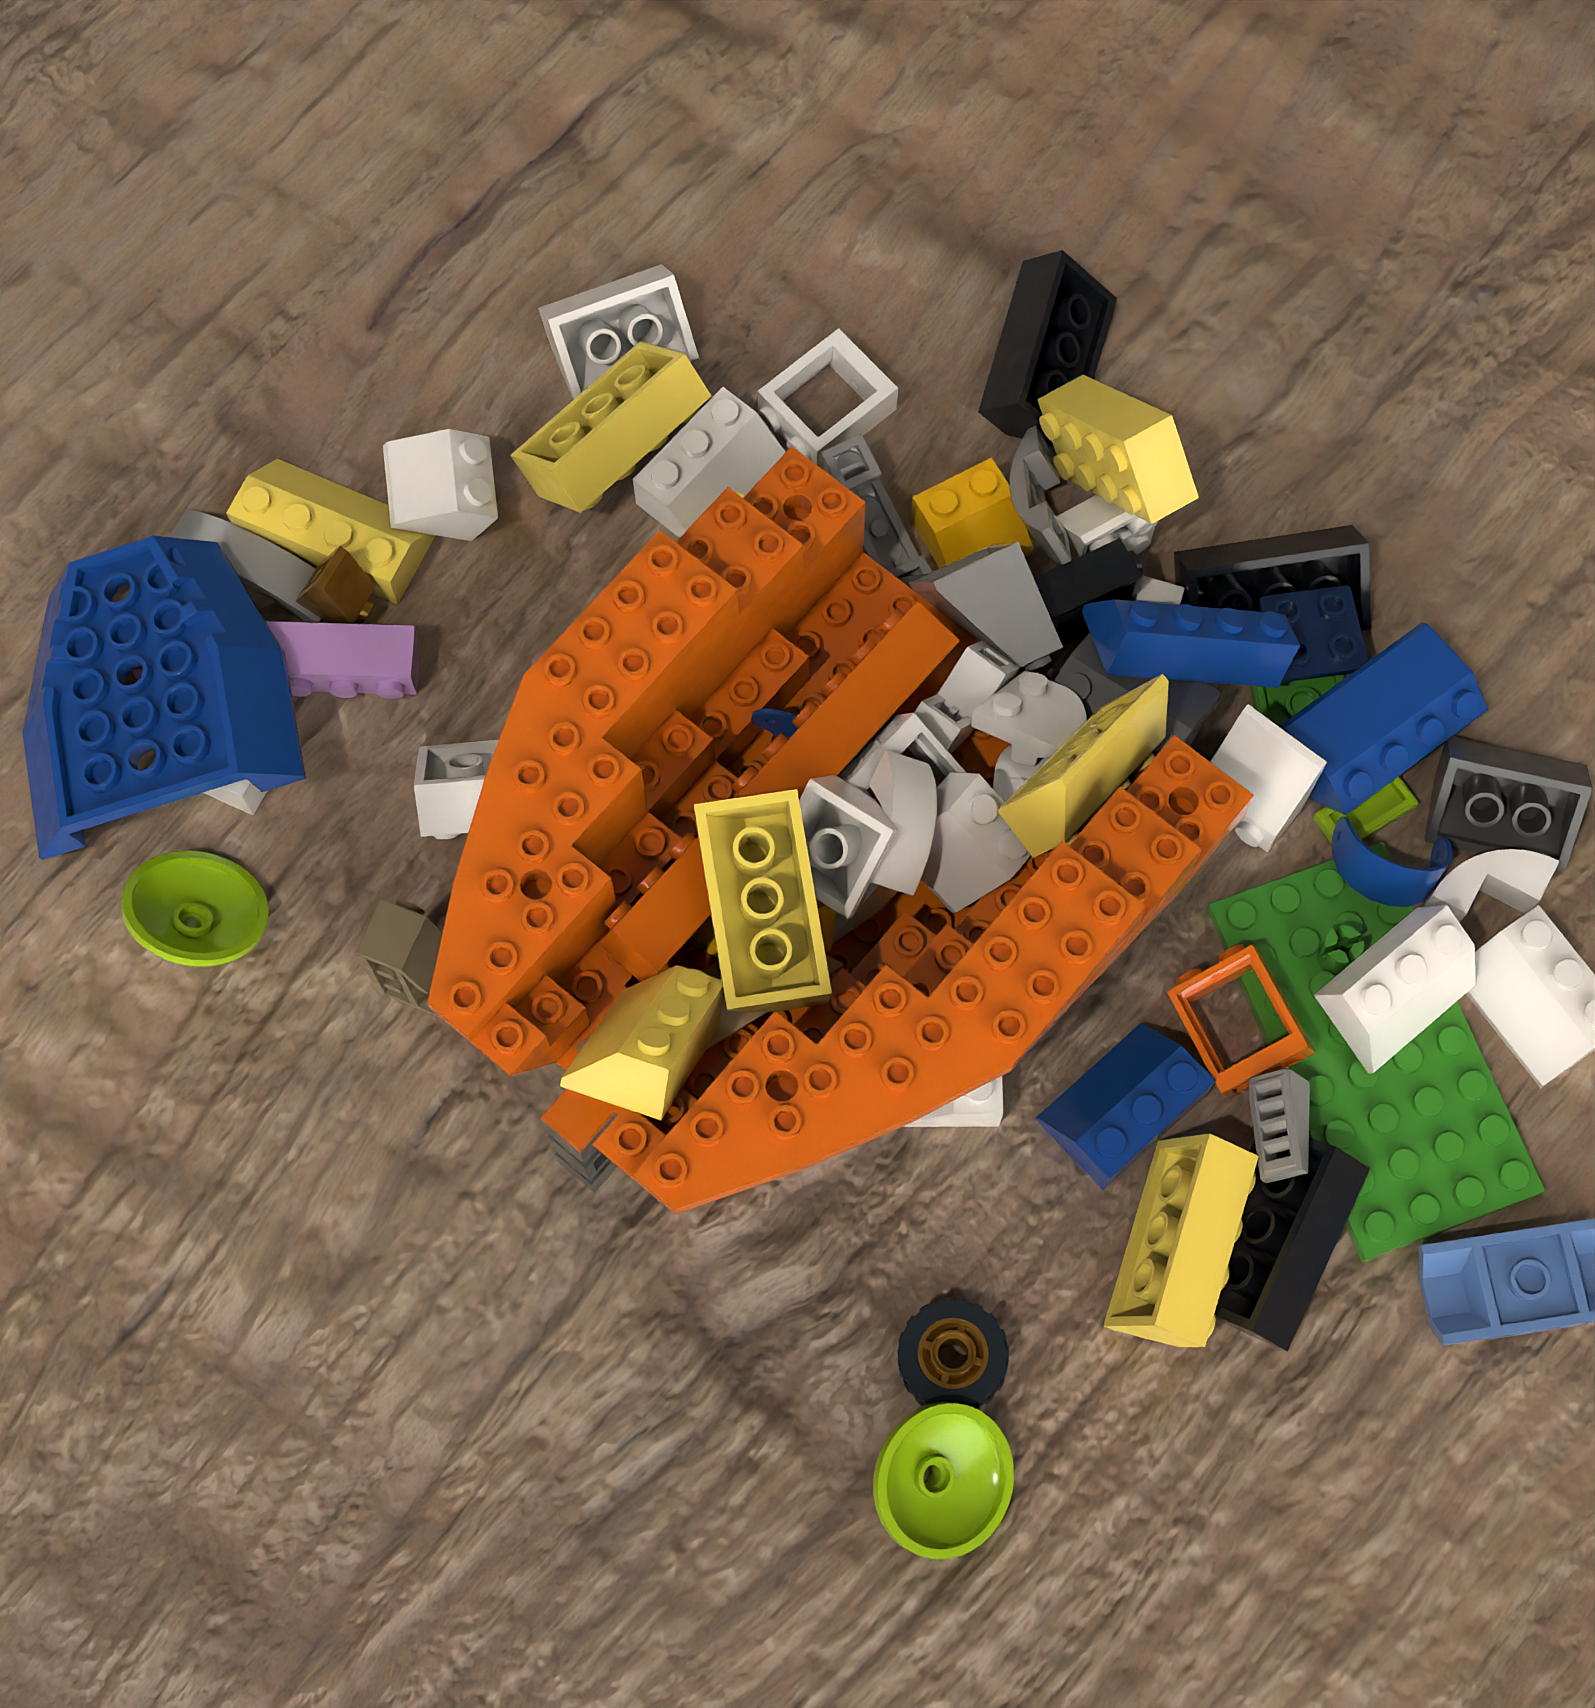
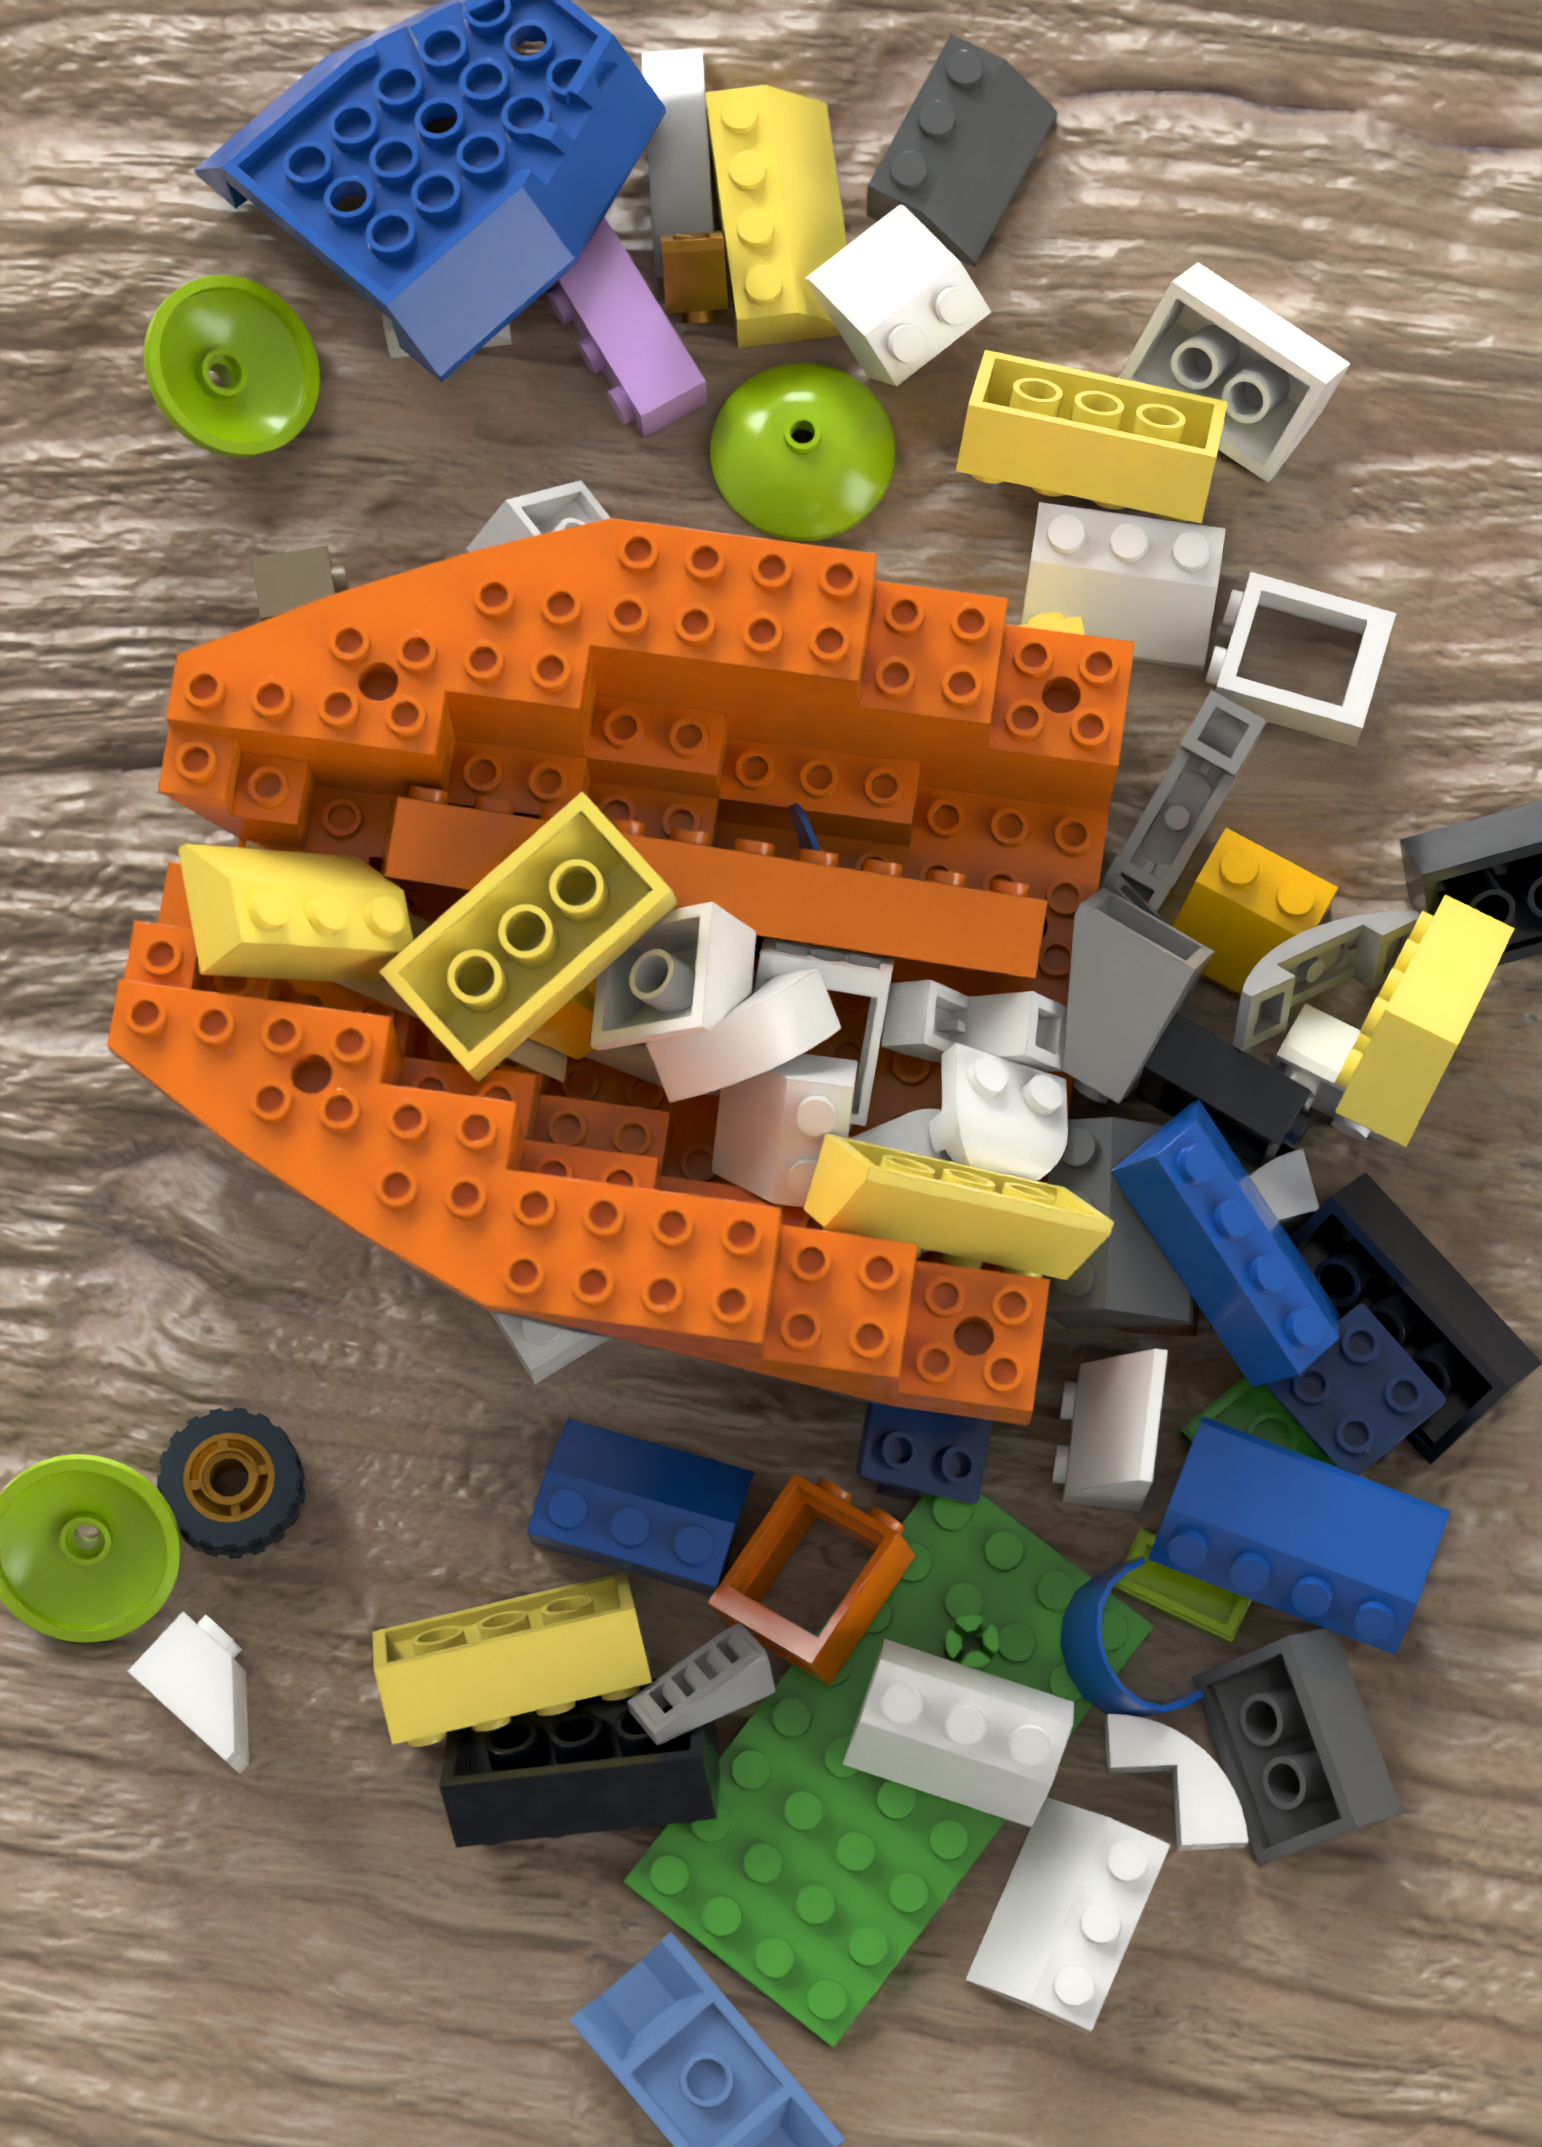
camera: 60 degrees right, 5 degrees up
(363, 395) = (962, 148): none -> dark grey slope
(498, 629) = (793, 486): none -> lime dish
(1088, 1453) = (201, 1683): none -> white slope
(1202, 908) = (923, 1453): none -> dark blue bracket

